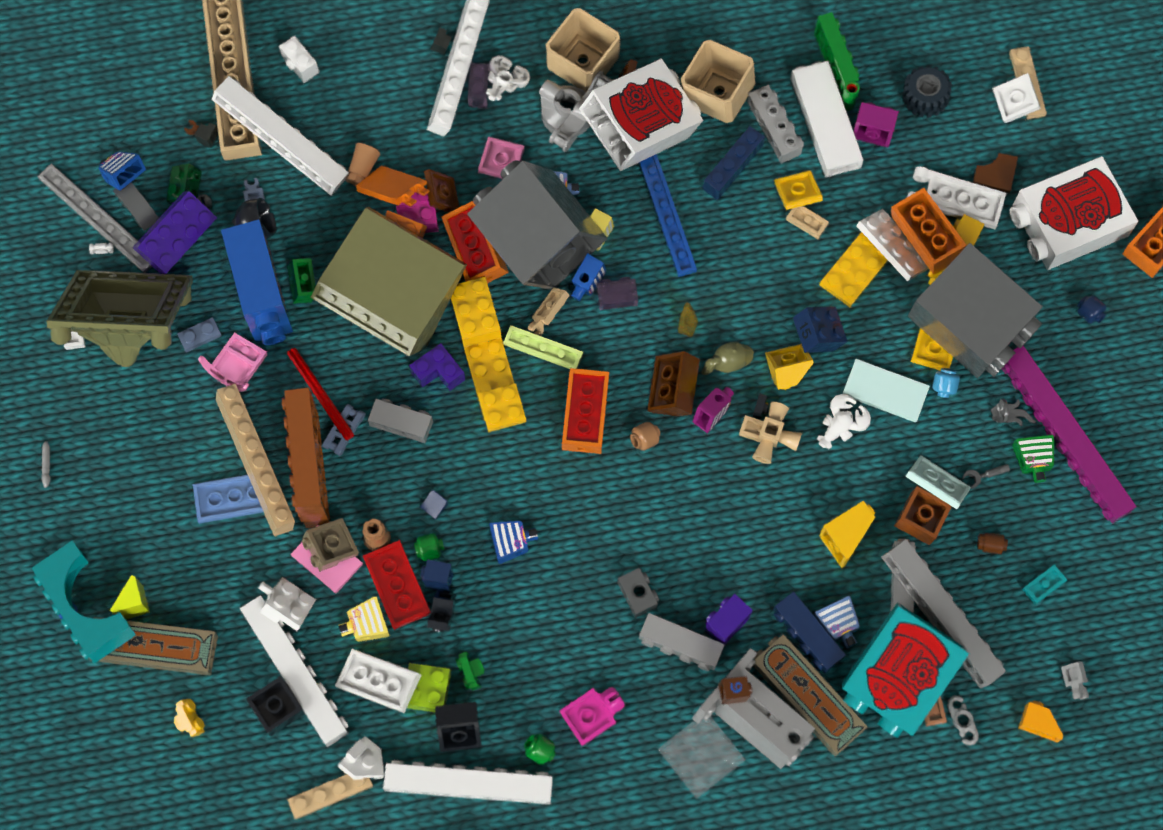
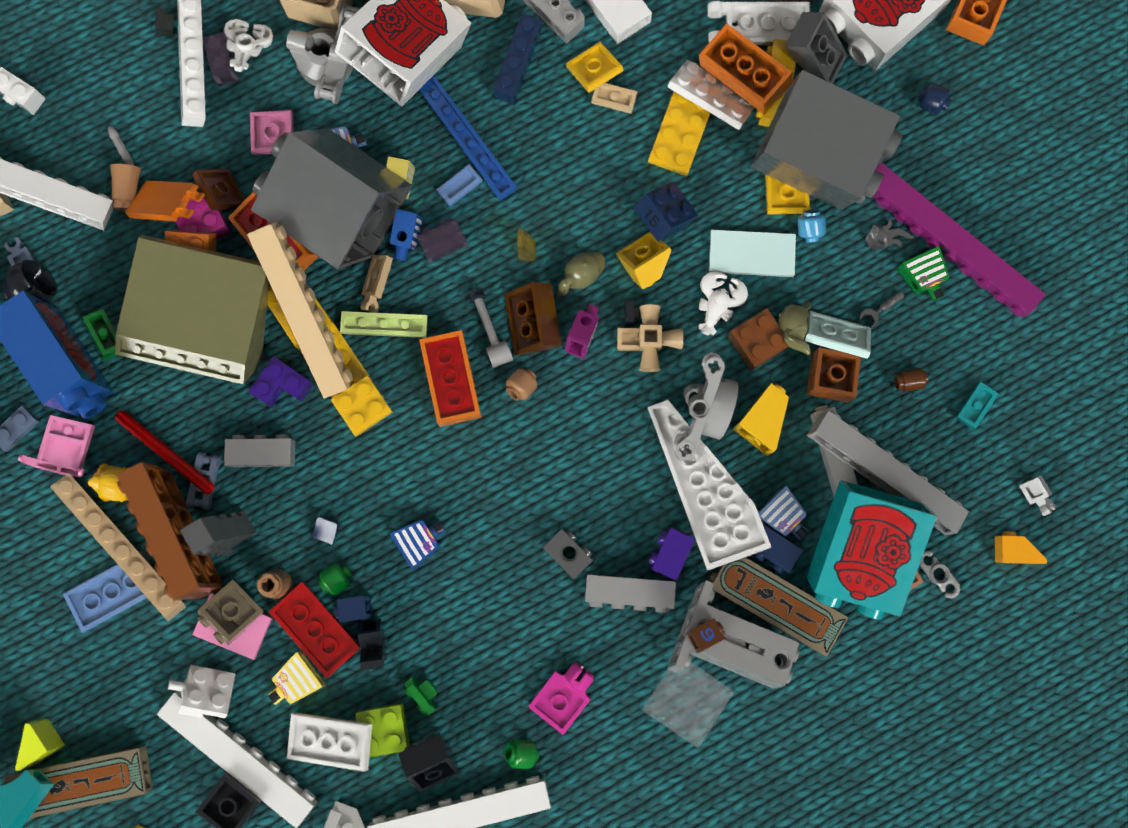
camera: 20 degrees left, 10 degrees up
(268, 405) = (105, 483): none -> yellow hair
(345, 473) = (218, 534): none -> dark grey wedge
(368, 129) = (113, 134): none -> light grey piece
(480, 309) = (300, 309): none -> tan brick
(634, 402) = (497, 351): none -> light grey piece
(647, 253) = (459, 185): none -> medium blue tile
(780, 588) = (716, 506): none -> white wing
(803, 511) = (710, 407): none -> light grey piece
(866, 464) = (758, 339): none -> dark orange brick
(900, 461) = (794, 326): none -> olive hair
(999, 233) = (816, 46): none -> dark grey slope

